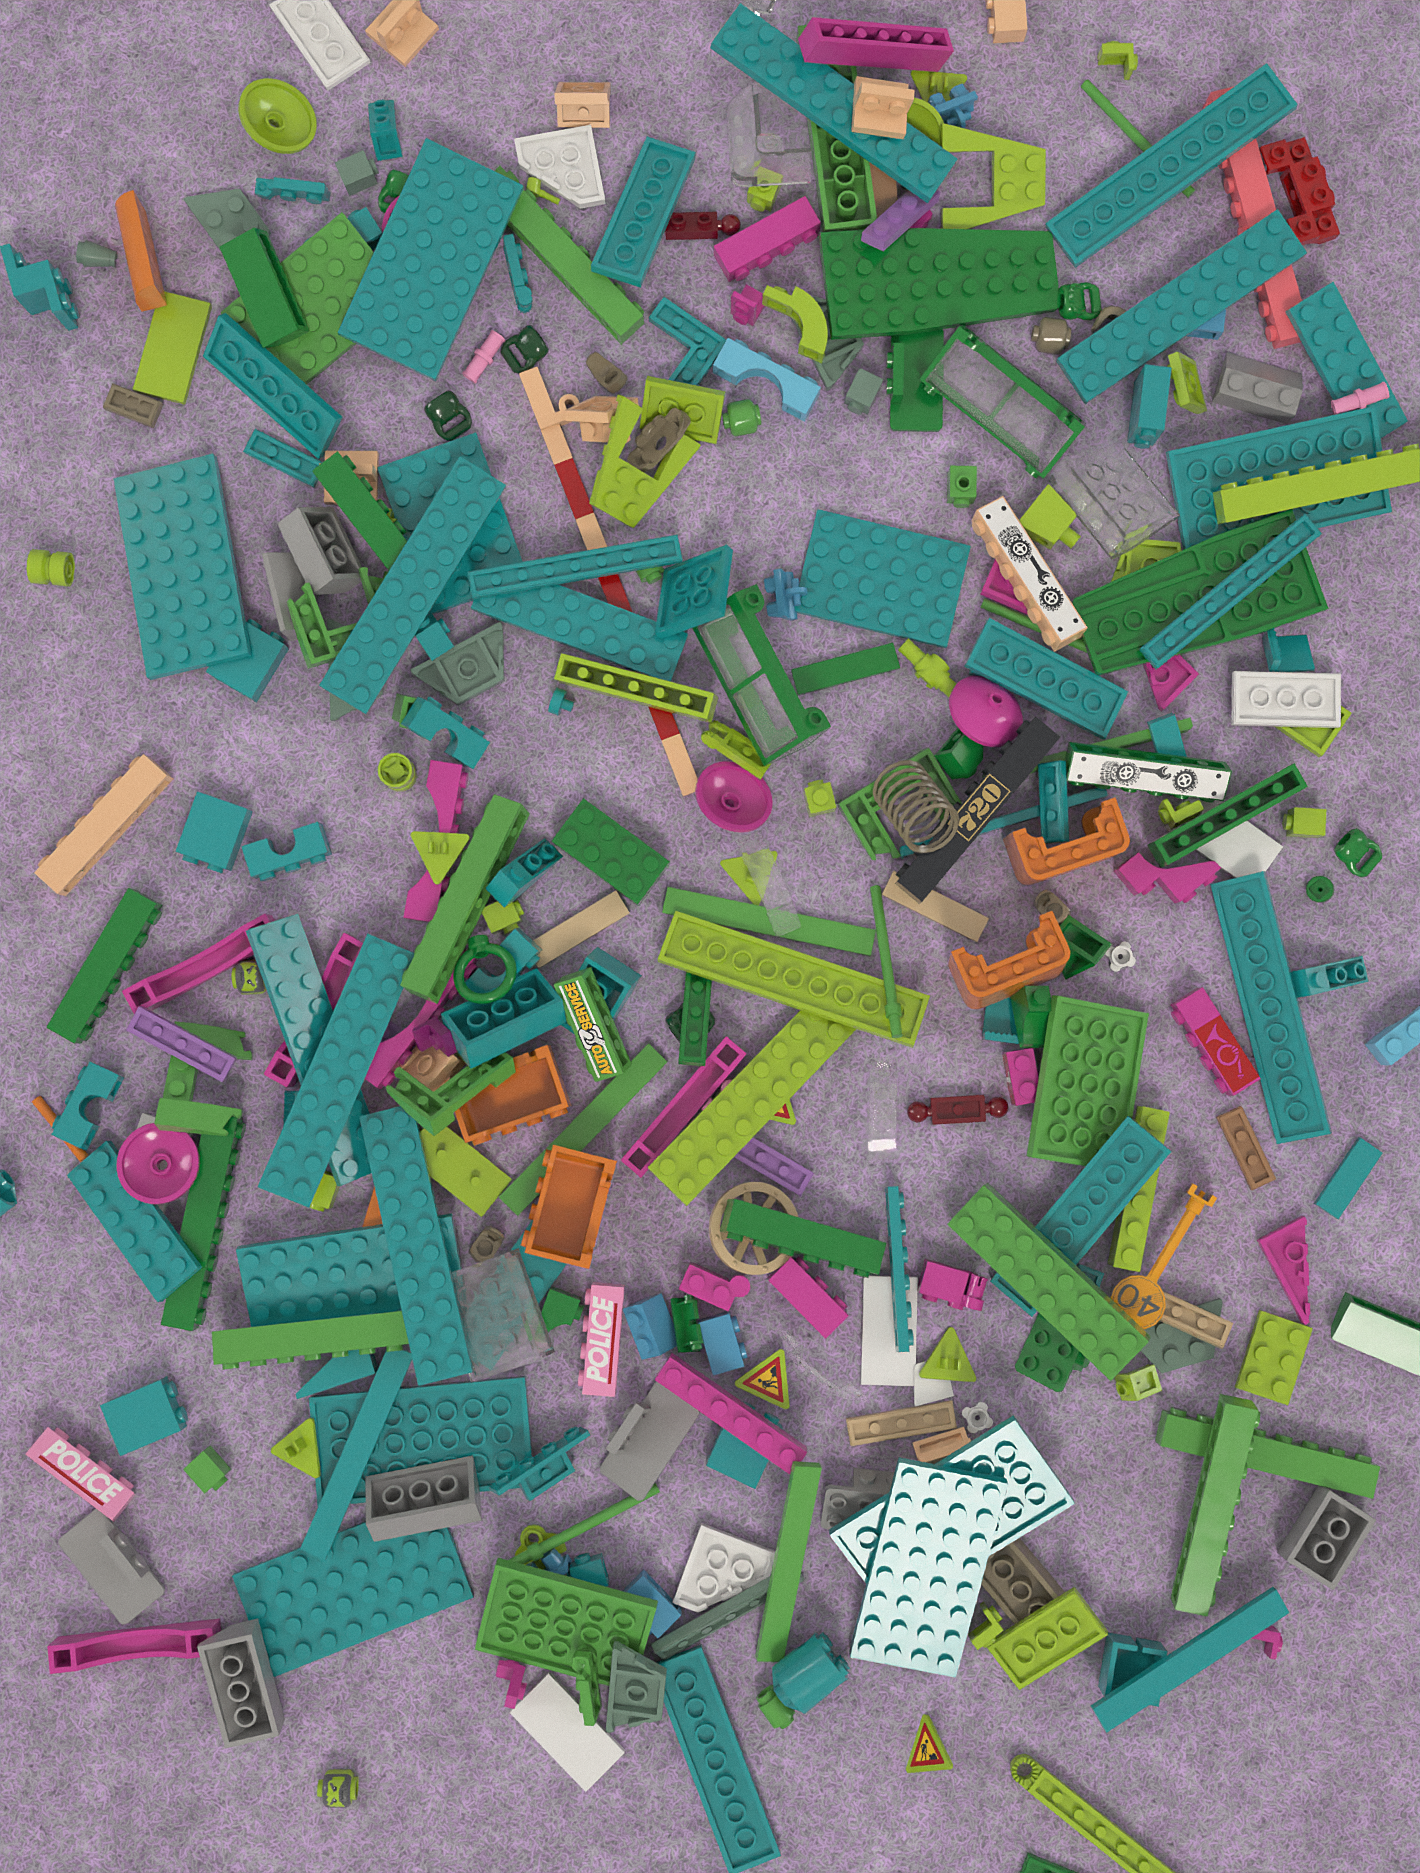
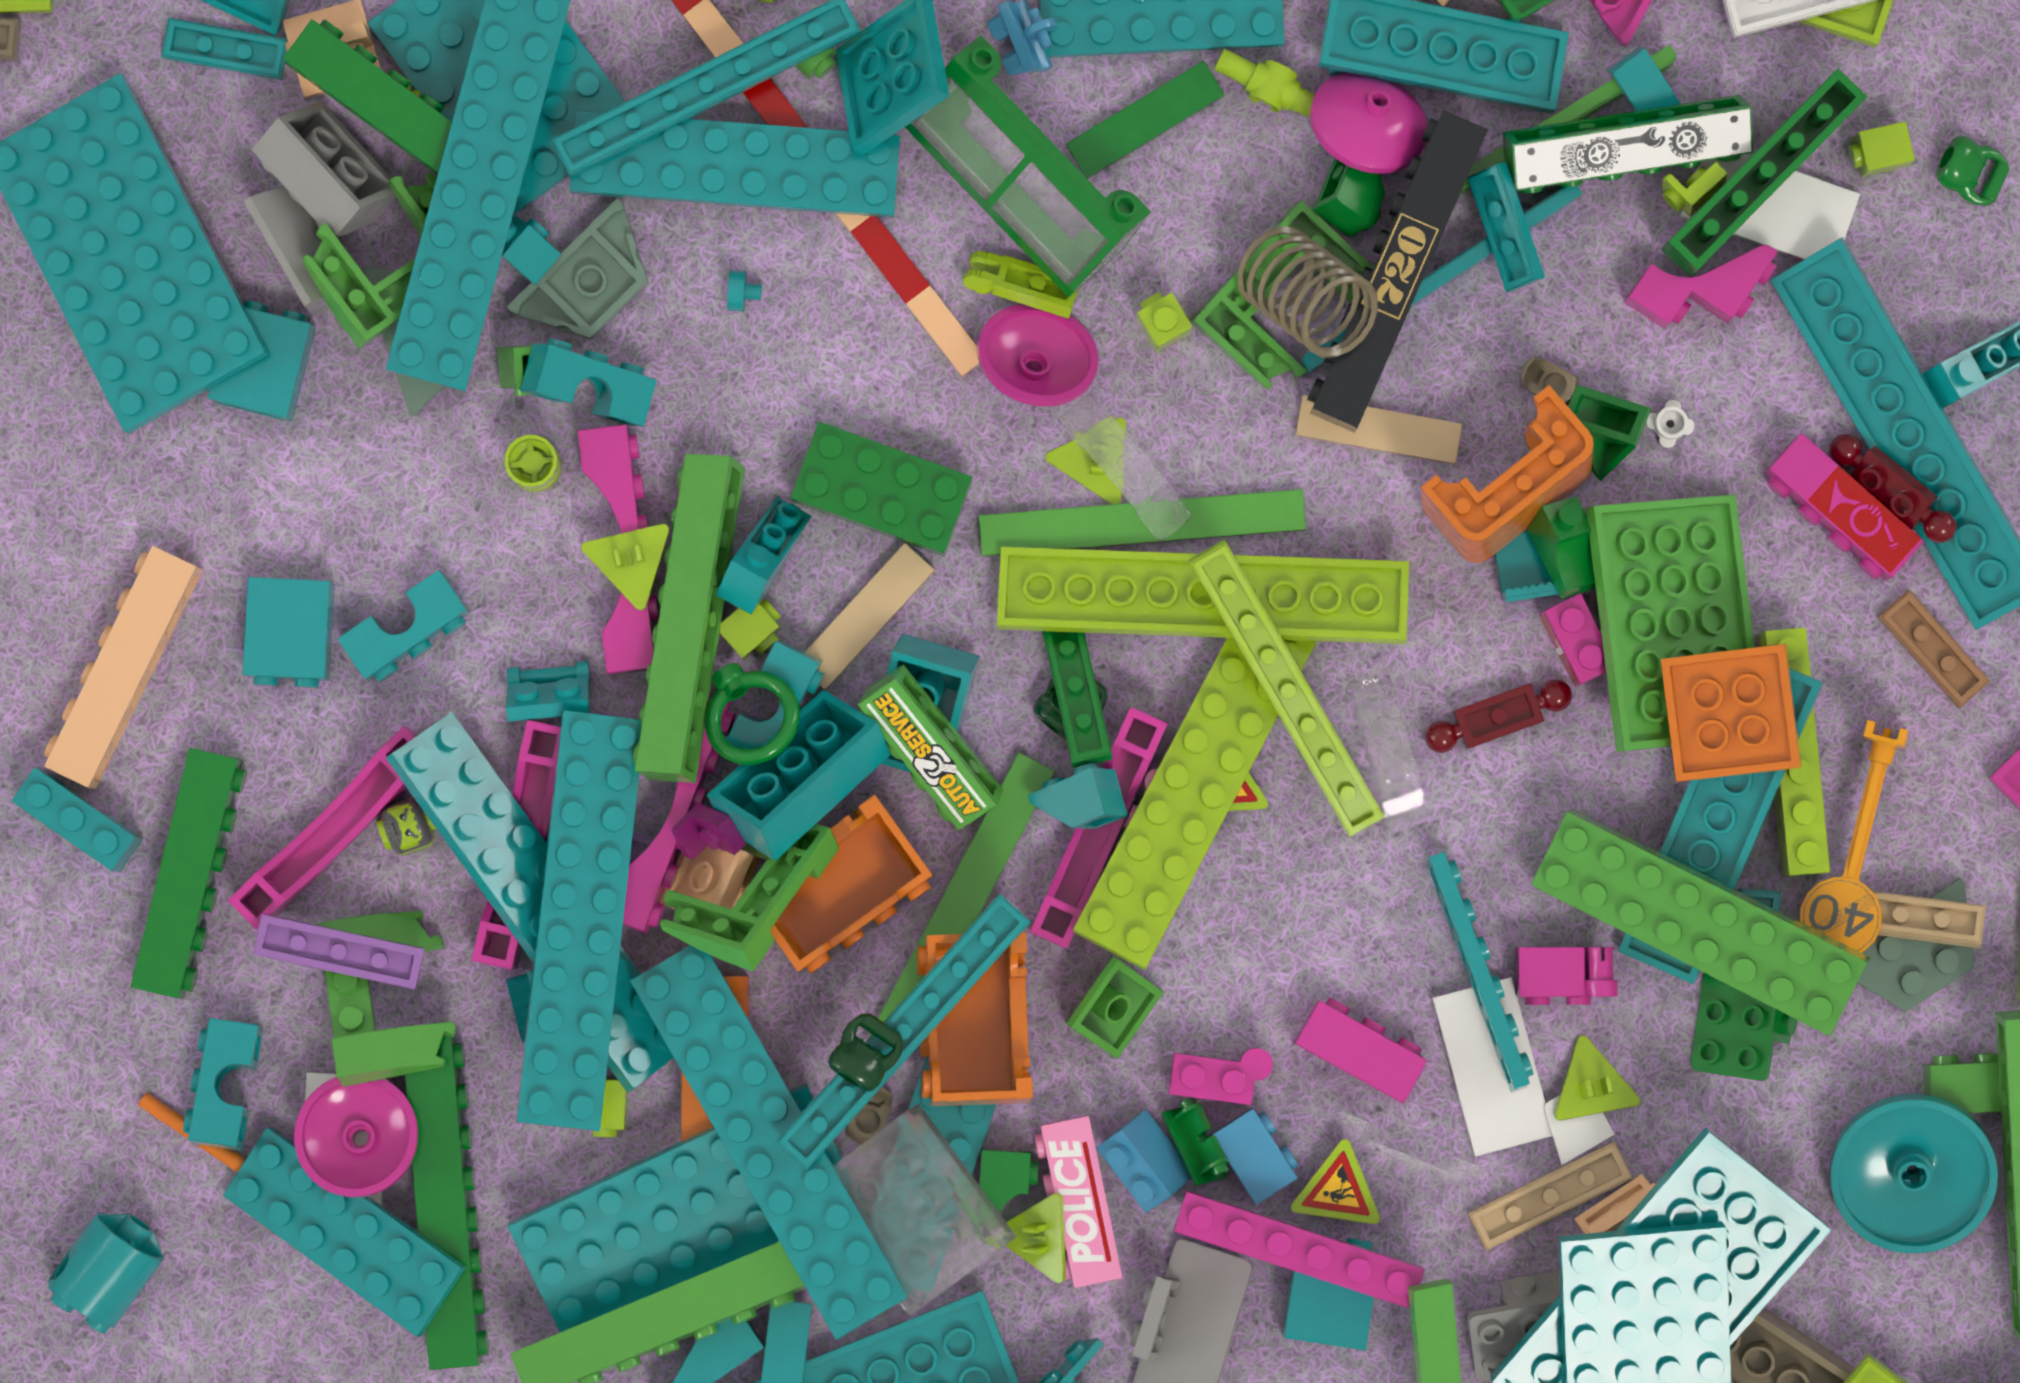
camera: 20 degrees left, 0 degrees up
(51, 921) = (77, 820): none -> teal arch
(363, 918) = (547, 691): none -> teal plate
(463, 1170) = (794, 1010): lime piece -> none
(485, 1213) = (861, 1062): none -> dark green piece
(519, 1201) = (912, 1018): none -> teal tile
(571, 1355) = (1042, 1237): none -> lime piece
(636, 688) = (848, 237): lime brick -> none
(660, 1222) = (1114, 1007): none -> bright green slope
(679, 1086) = (1083, 800): none -> teal slope
(716, 1236) = (1260, 969): tan wheel -> none
(775, 1166) = (1256, 876): medium lavender plate -> none
(802, 1237) = (1327, 966): green brick -> none
(828, 1052) = (1286, 687): none -> lime tile
(893, 1008) = (1360, 594): bright green bar -> none
(973, 1424) = (1646, 1152): white plate -> none
(1103, 839) = (1595, 261): orange windscreen -> none
(1107, 1153) = (1731, 712): none -> orange plate
(1137, 1479) = (1920, 1206): none -> teal dish
(1138, 1383) = (1875, 1035): lime bracket -> none
(1251, 1039) = (1893, 487): none -> dark red plate
(1320, 889) = (1932, 240): green tile -> none

